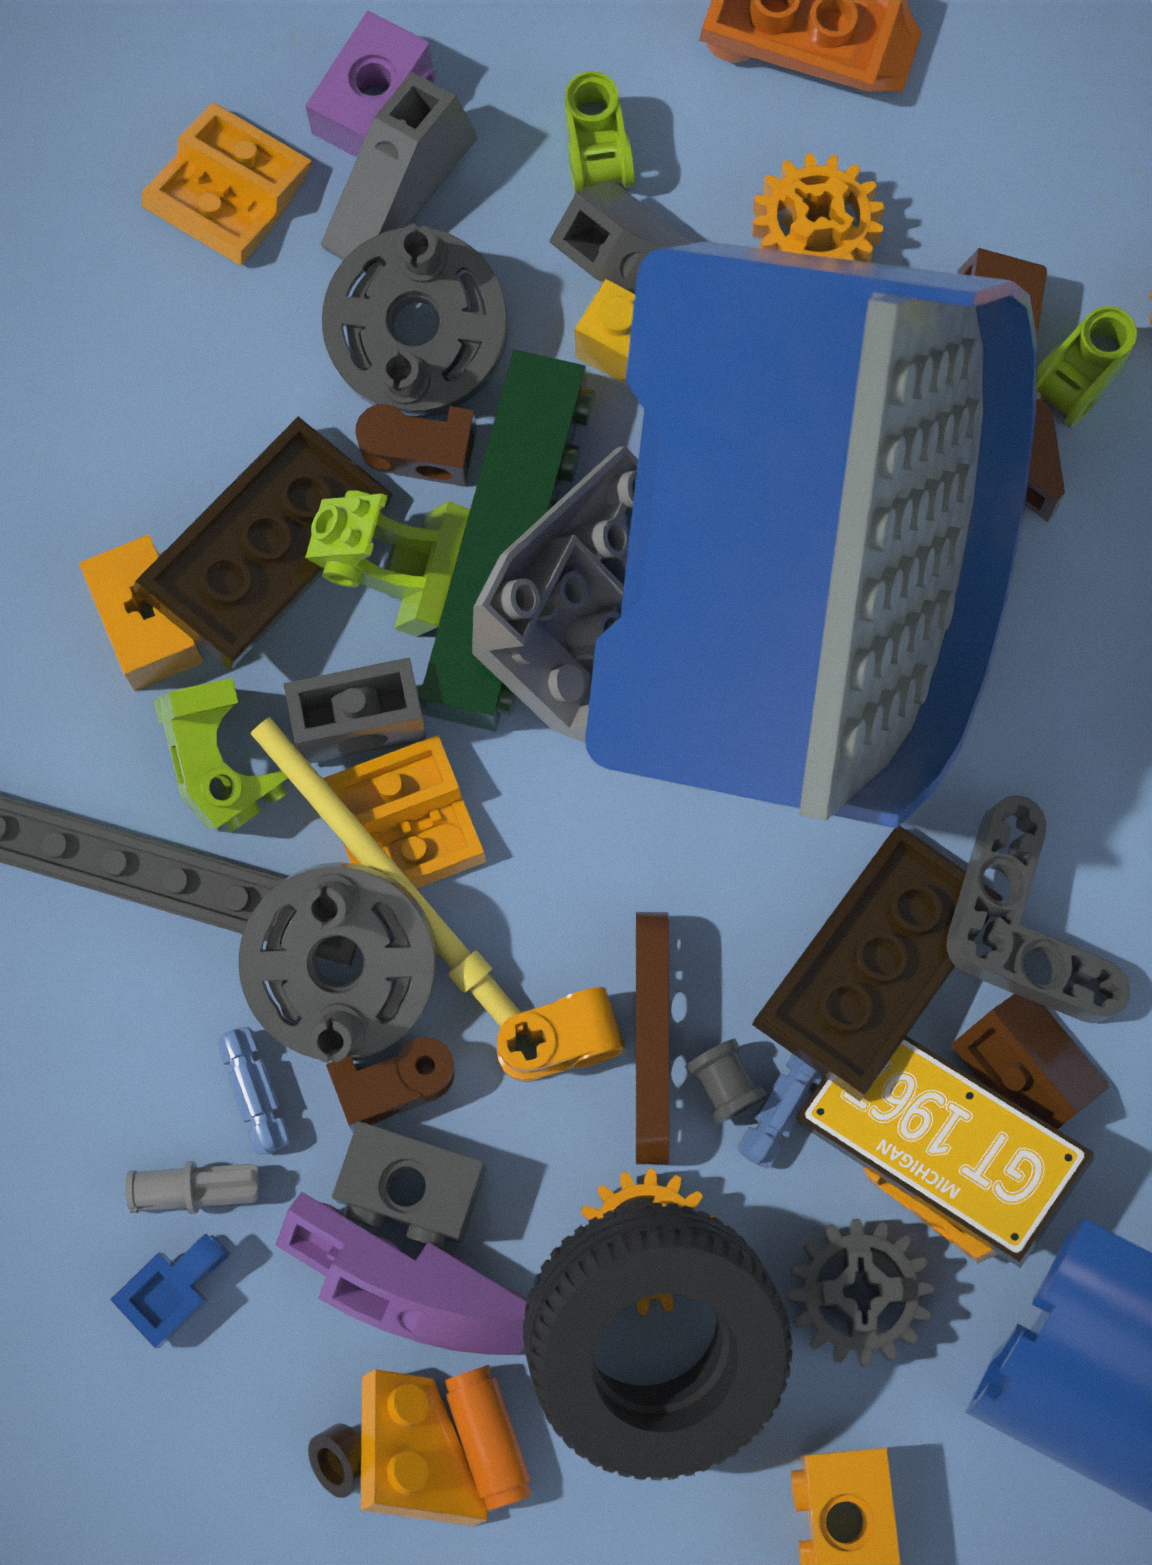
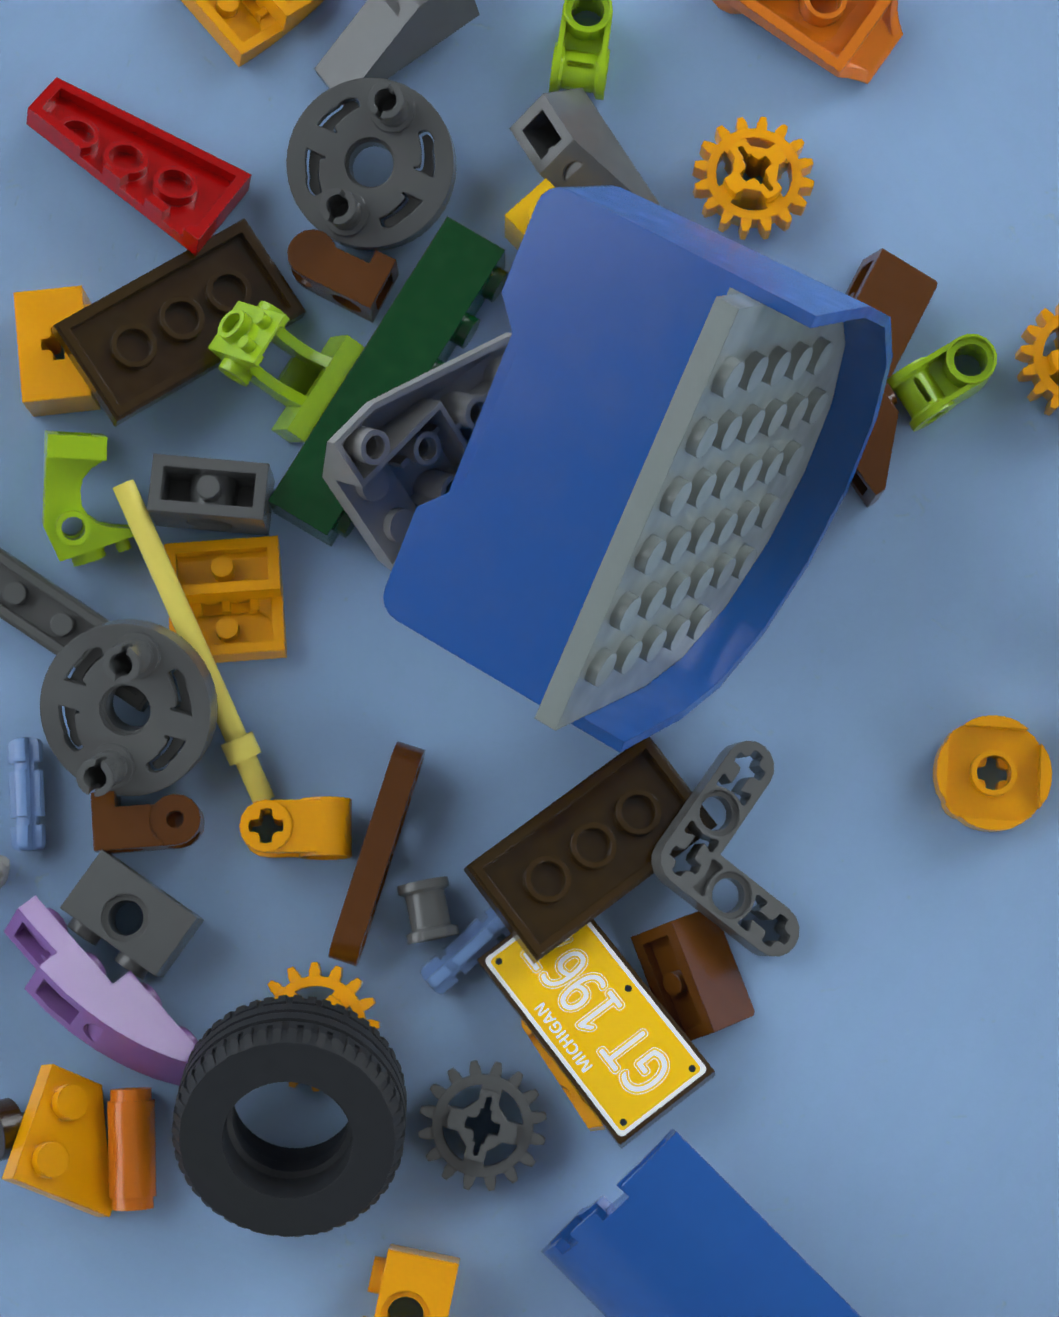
camera: 10 degrees right, 5 degrees up
(182, 394) = (150, 169): none -> red wing

